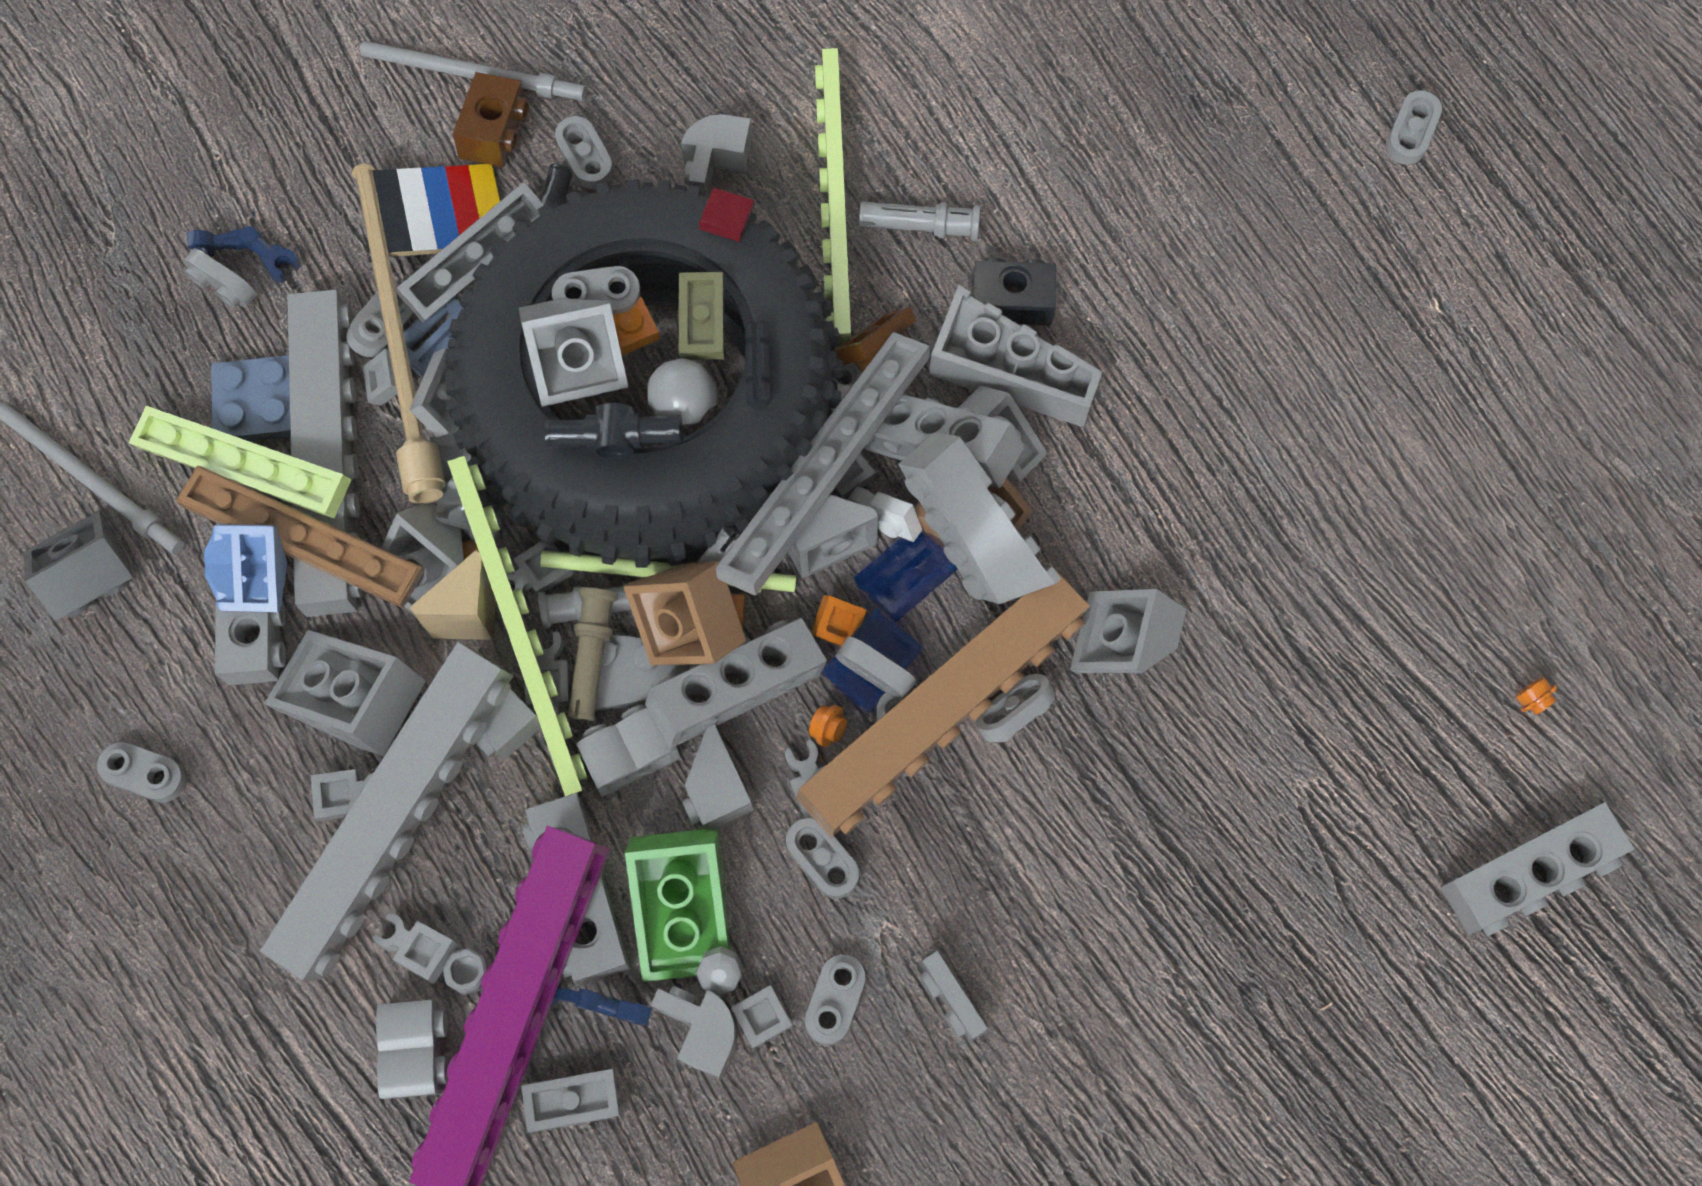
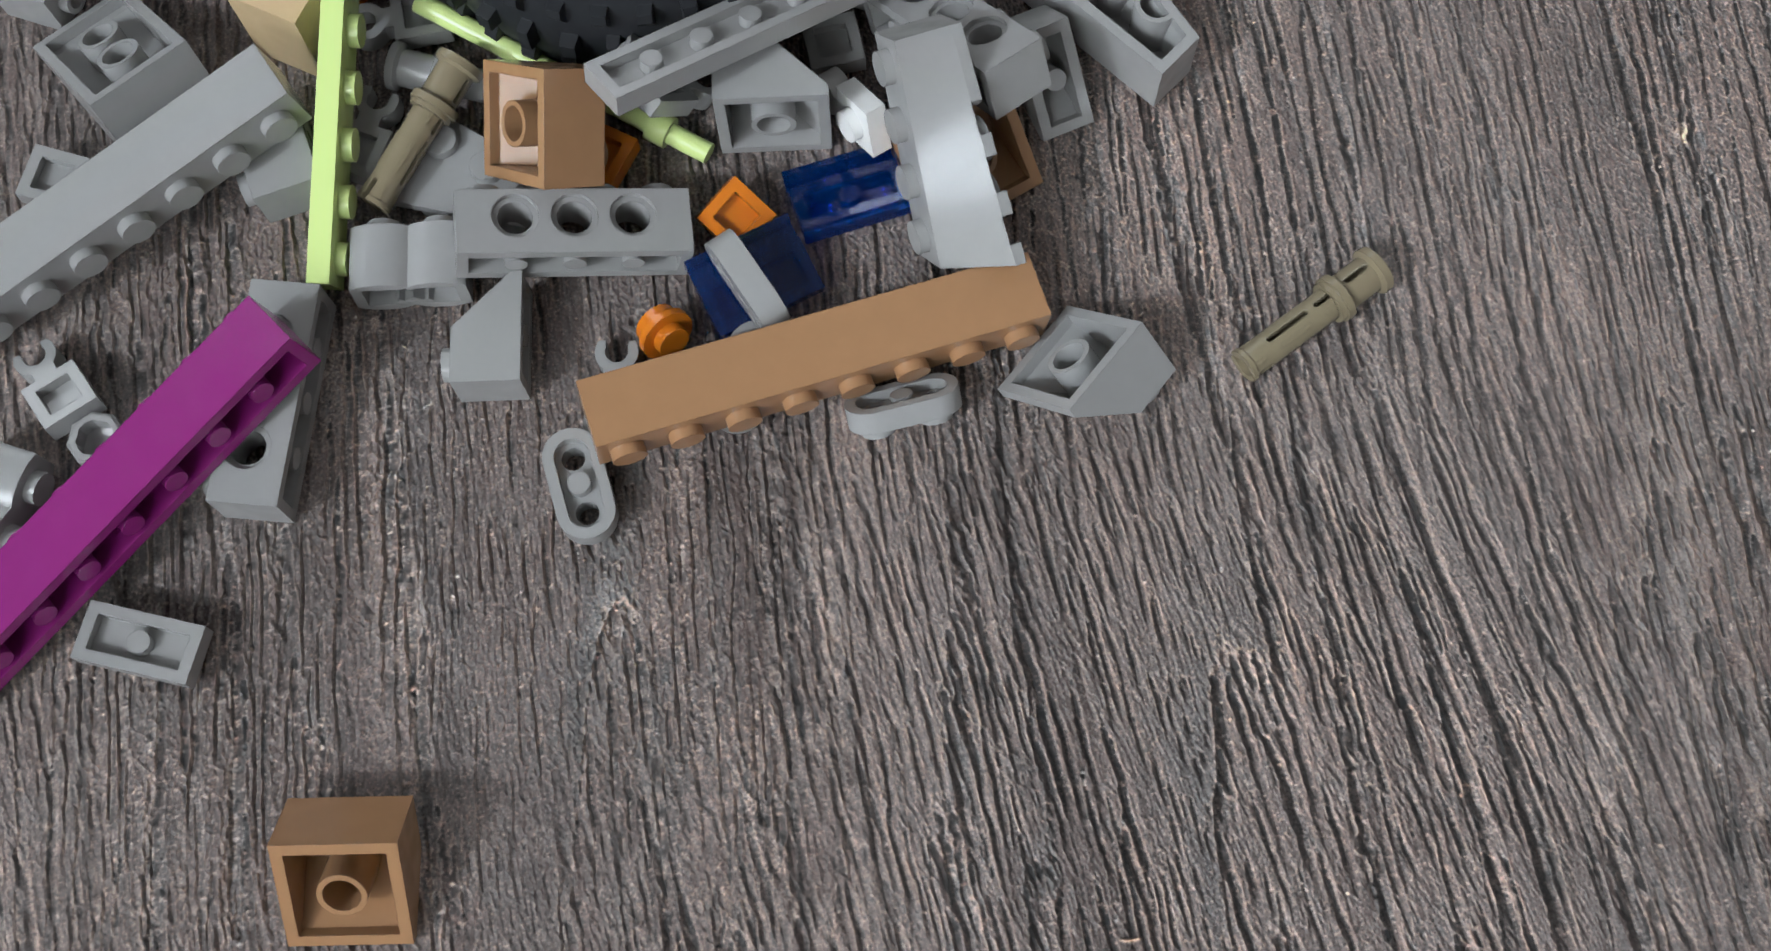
camera: 25 degrees right, 0 degrees up
(603, 1004) = (227, 542): dark blue piece -> none
(677, 900) = (381, 466): bright green slope -> none
(712, 1029) = (344, 634): light grey brick -> none
(719, 970) = (388, 565): light grey tile -> none
(761, 1017) = (414, 643): light grey plate -> none
(836, 999) = (519, 666): light grey plate -> none
(941, 982) = (649, 693): light grey plate -> none
(1263, 517) = (1332, 300): none -> dark tan pin
(1537, 696) = (1593, 665): orange plate -> none
(1593, 832) = (1590, 867): light grey brick -> none

